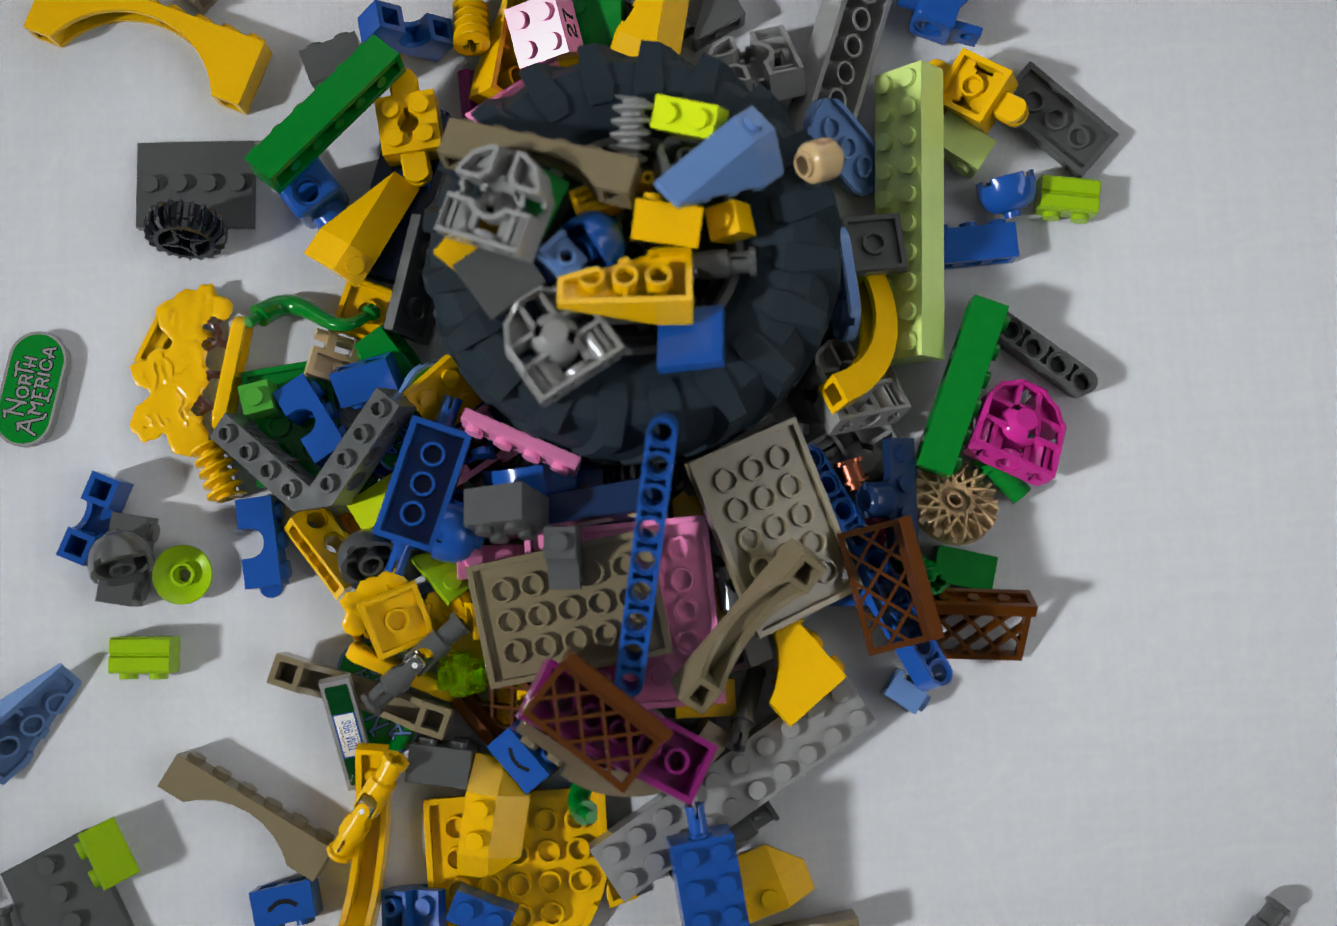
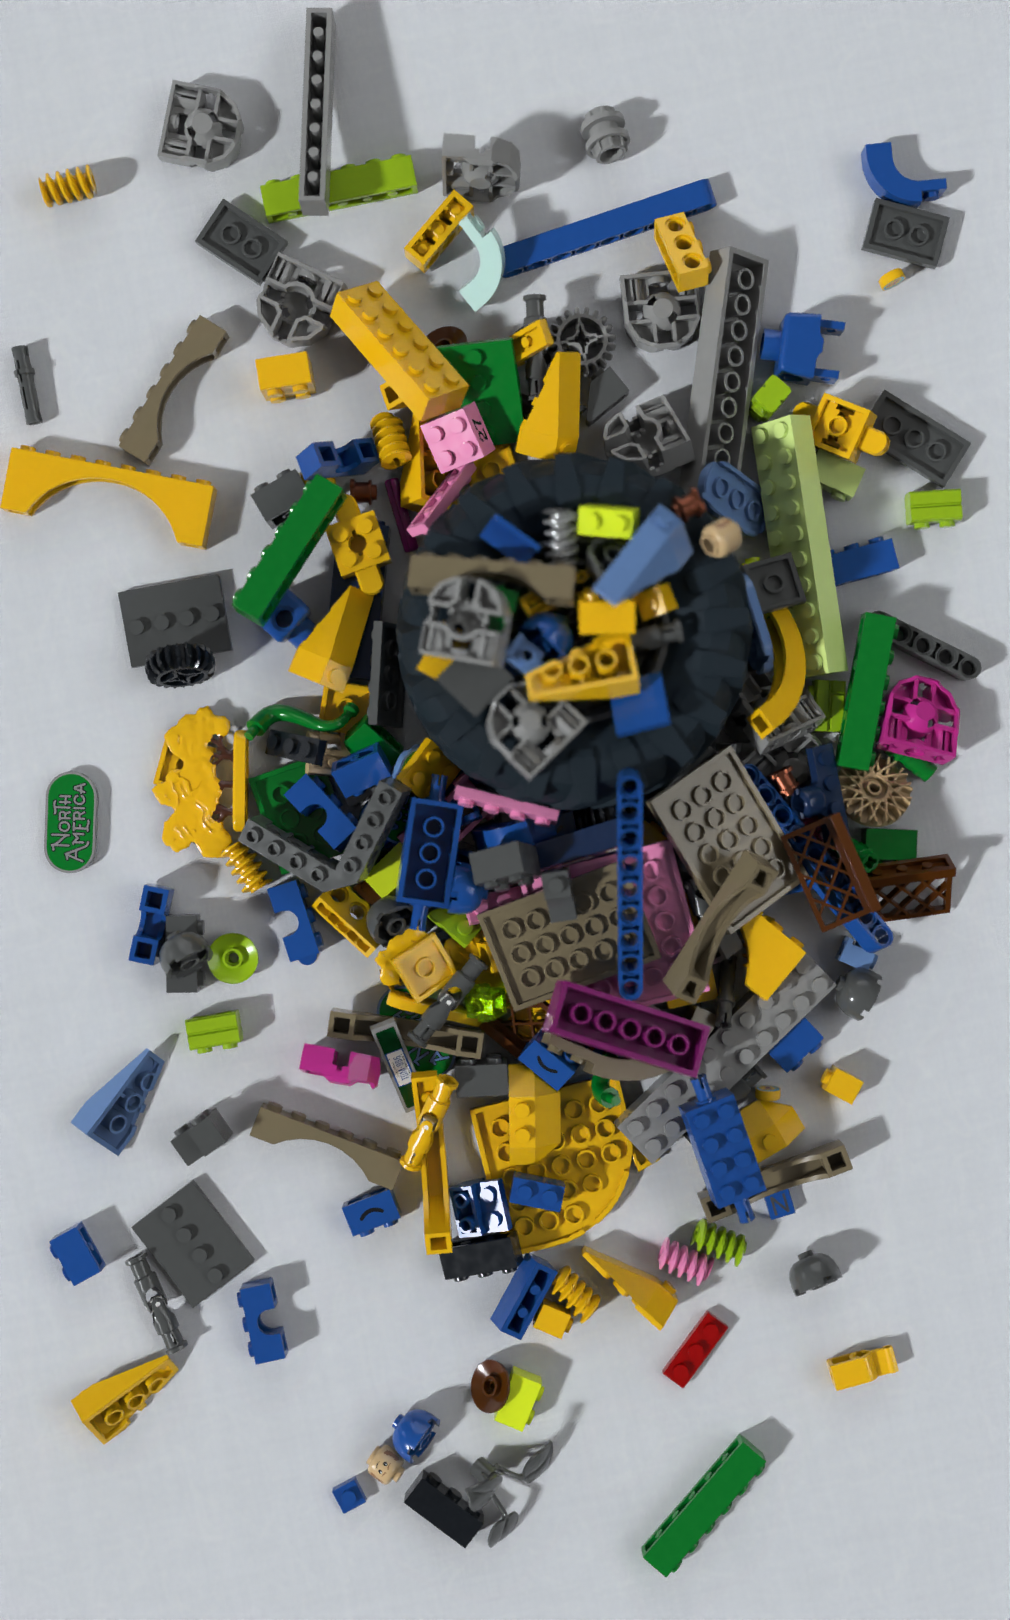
camera: 10 degrees left, 5 degrees up
(103, 777) = (202, 1137): none -> dark grey brick
(107, 854) = (218, 1197): lime hinge -> none
(258, 399) = (272, 801): bright green brick -> none
(275, 721) = (323, 1062): none -> dark pink connector
(299, 343) = (296, 747): none -> black plate
(431, 77) = (363, 491): none -> copper brick
(569, 120) = (509, 540): none -> blue panel
(620, 703) = (616, 1000): reddish brown fence -> none
(777, 839) = (767, 1093): none -> yellow tile
(787, 117) = (688, 506): none -> copper brick
(818, 787) = (796, 1045): none -> blue brick
(865, 842) = (841, 1084): none -> yellow brick
(899, 45) = (768, 399): none -> lime brick
(900, 735) = (857, 991): none -> dark grey cylinder
(920, 389) = (831, 700): none -> lime brick
(1008, 193) = (881, 513): blue cylinder -> none

